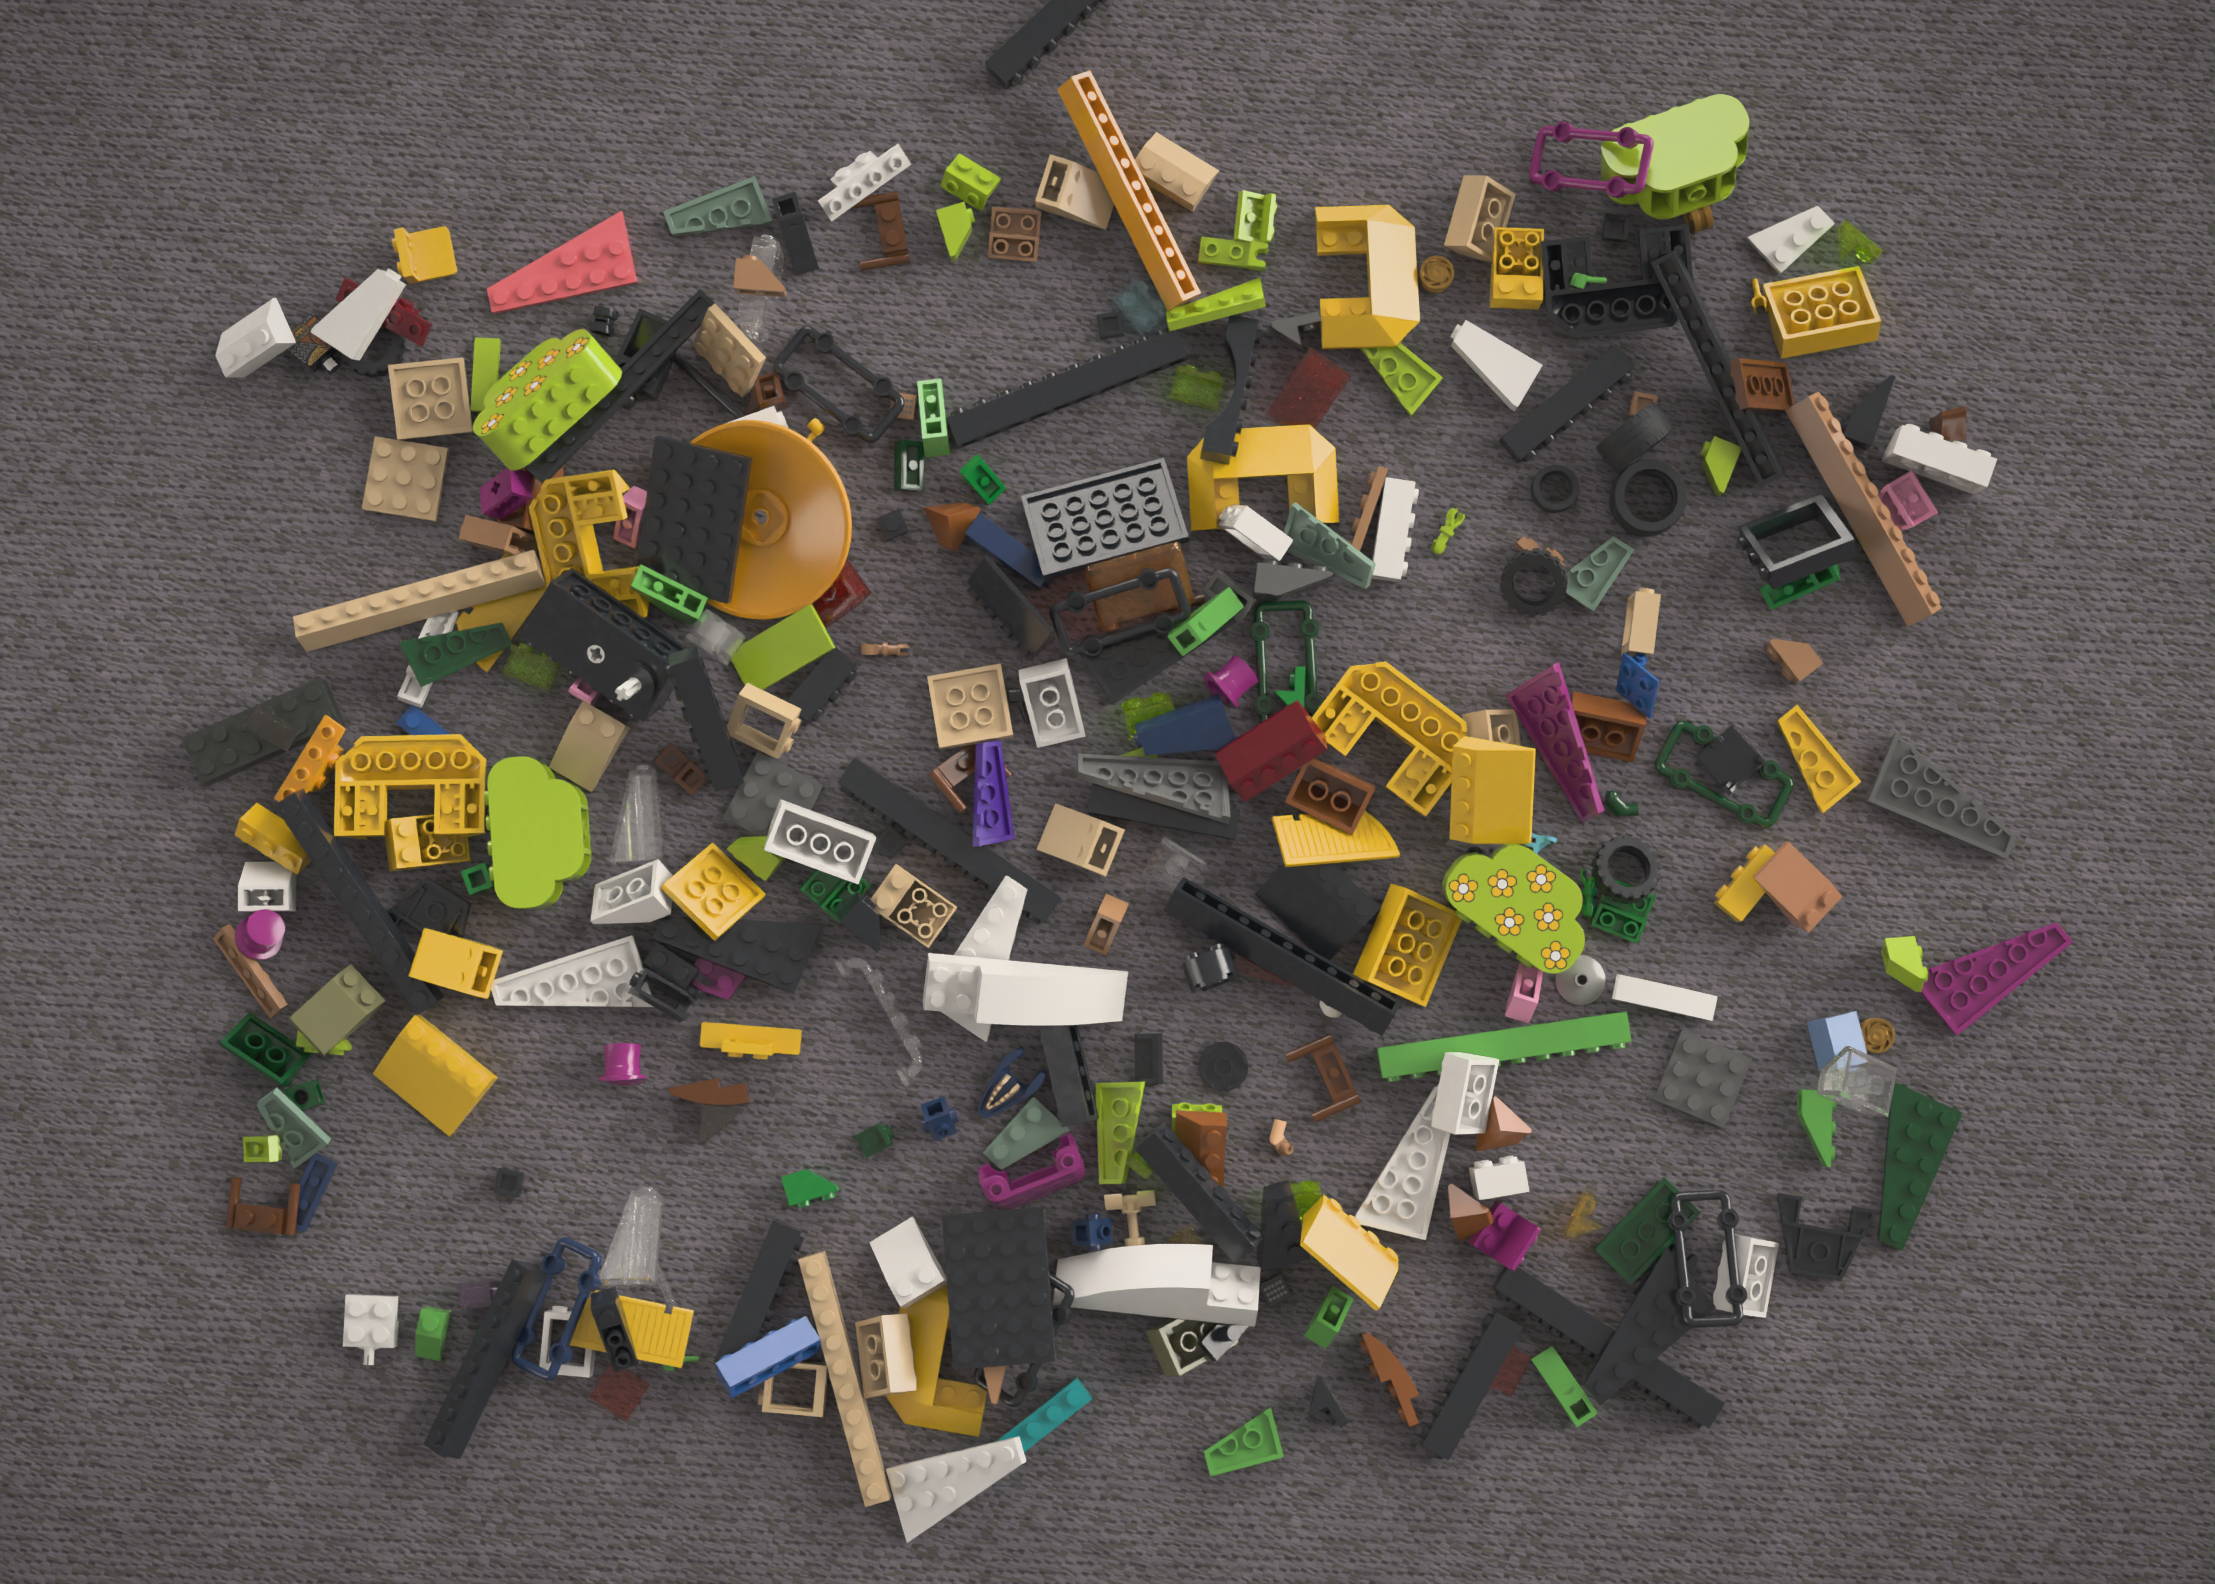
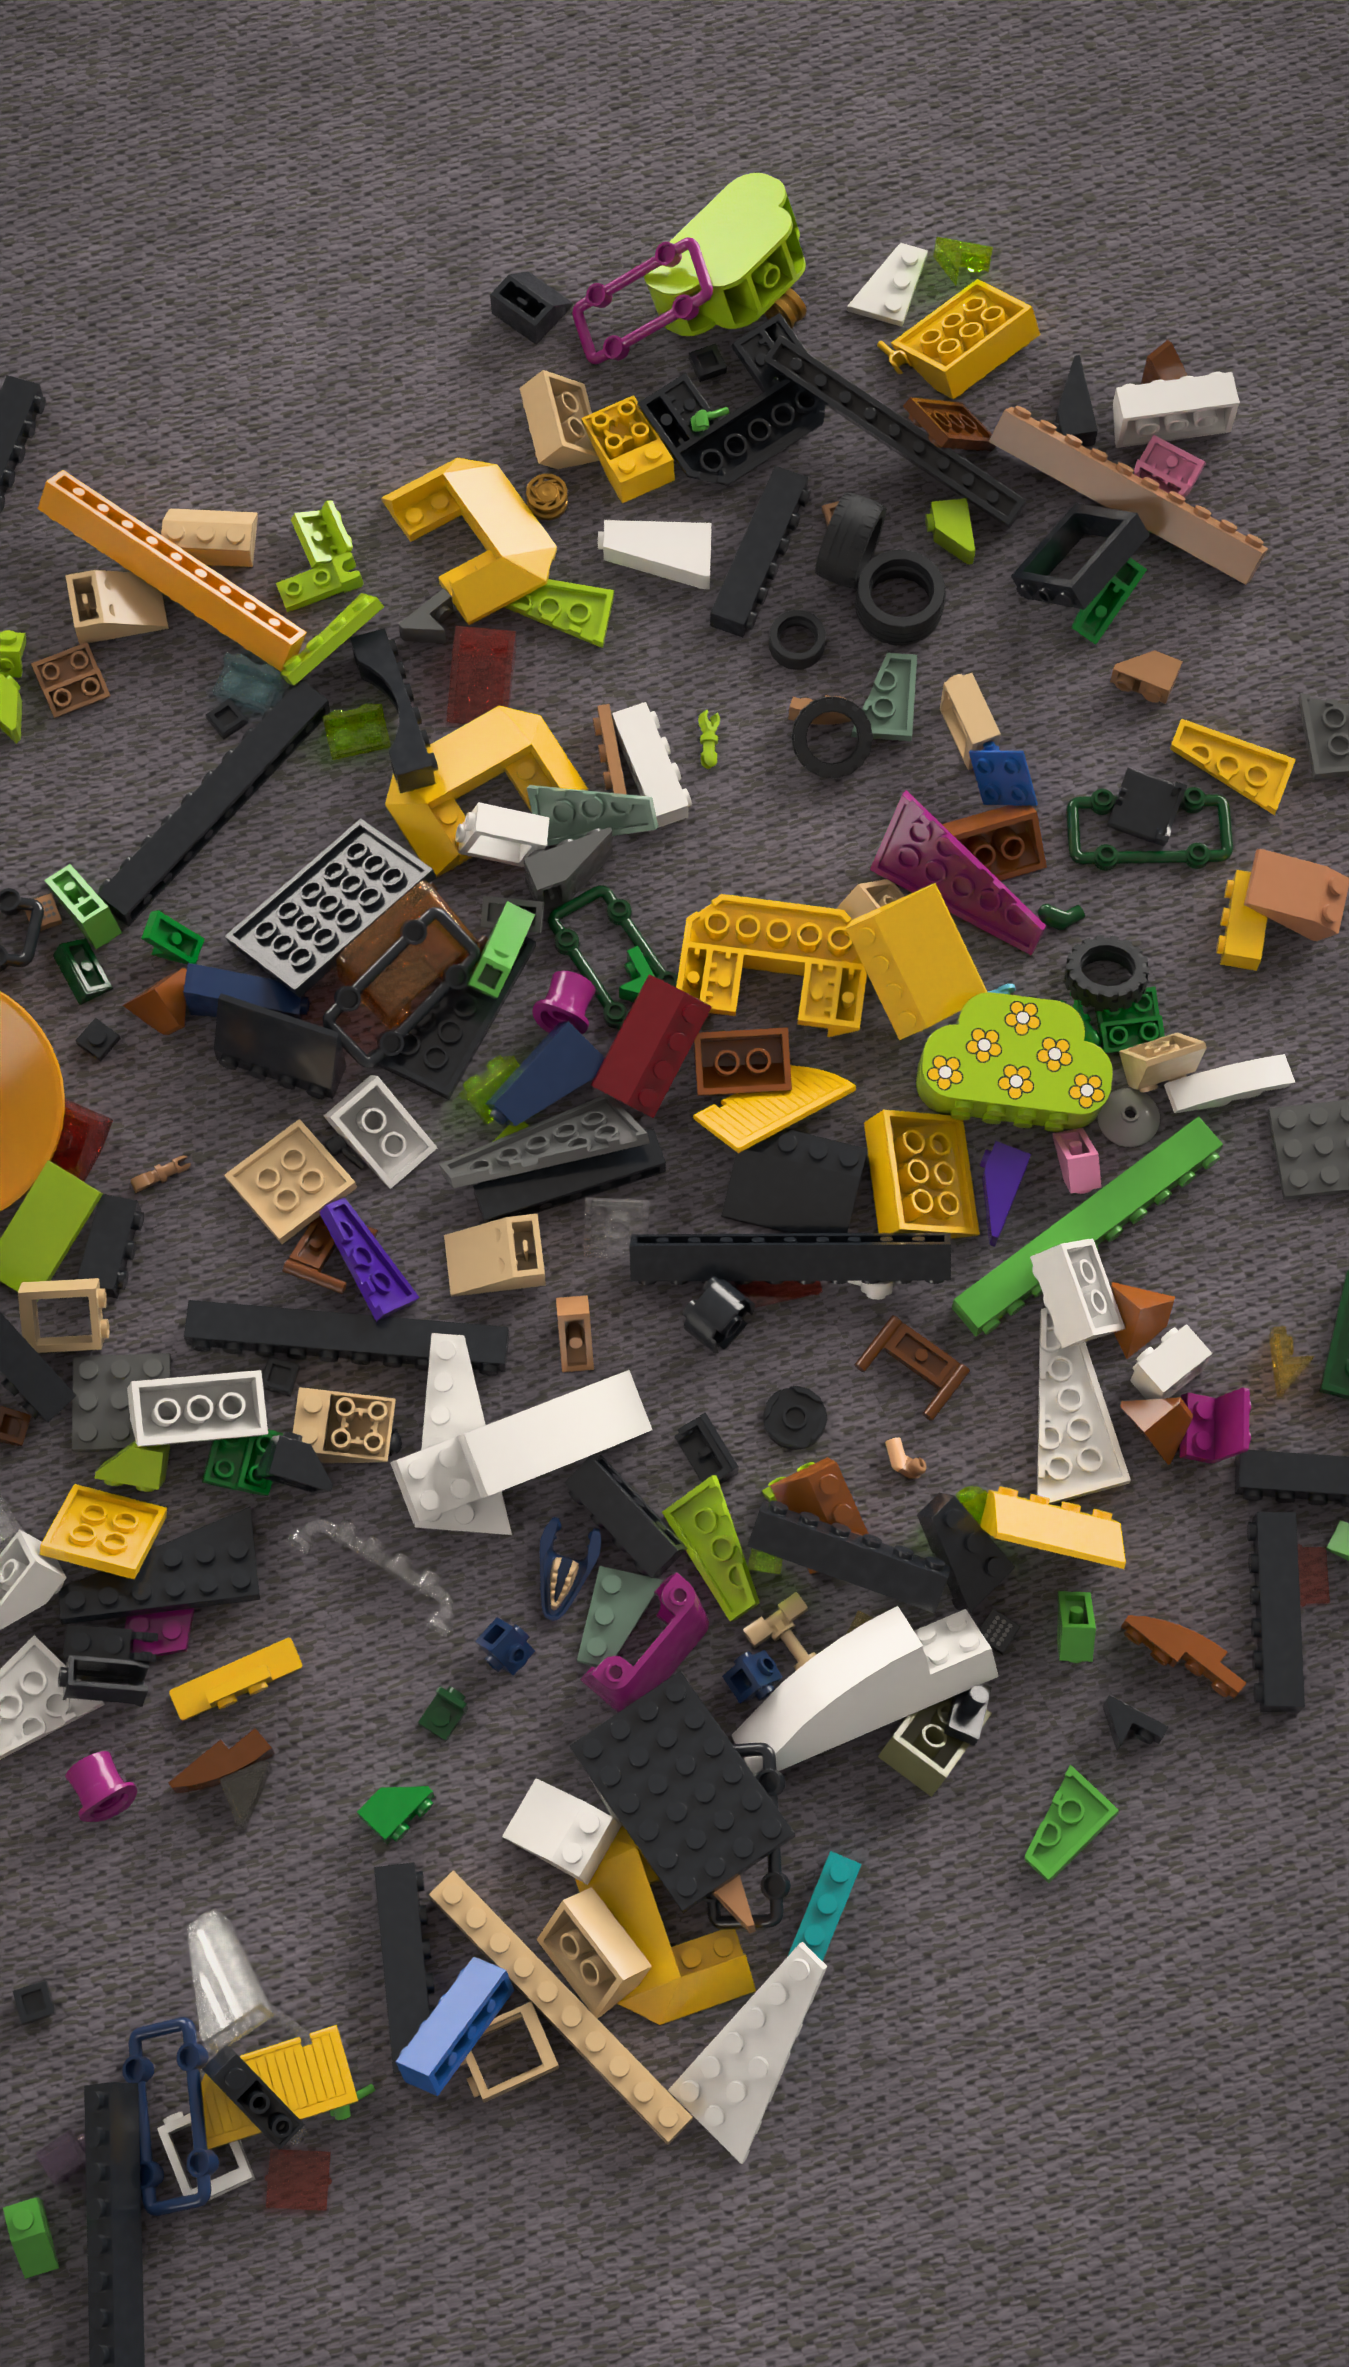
camera: 30 degrees left, 15 degrees down
(1461, 980) = (1001, 1181): none -> dark purple slope
(1510, 108) = (528, 305): none -> black slope
(1624, 955) = (1161, 1060): none -> tan slope

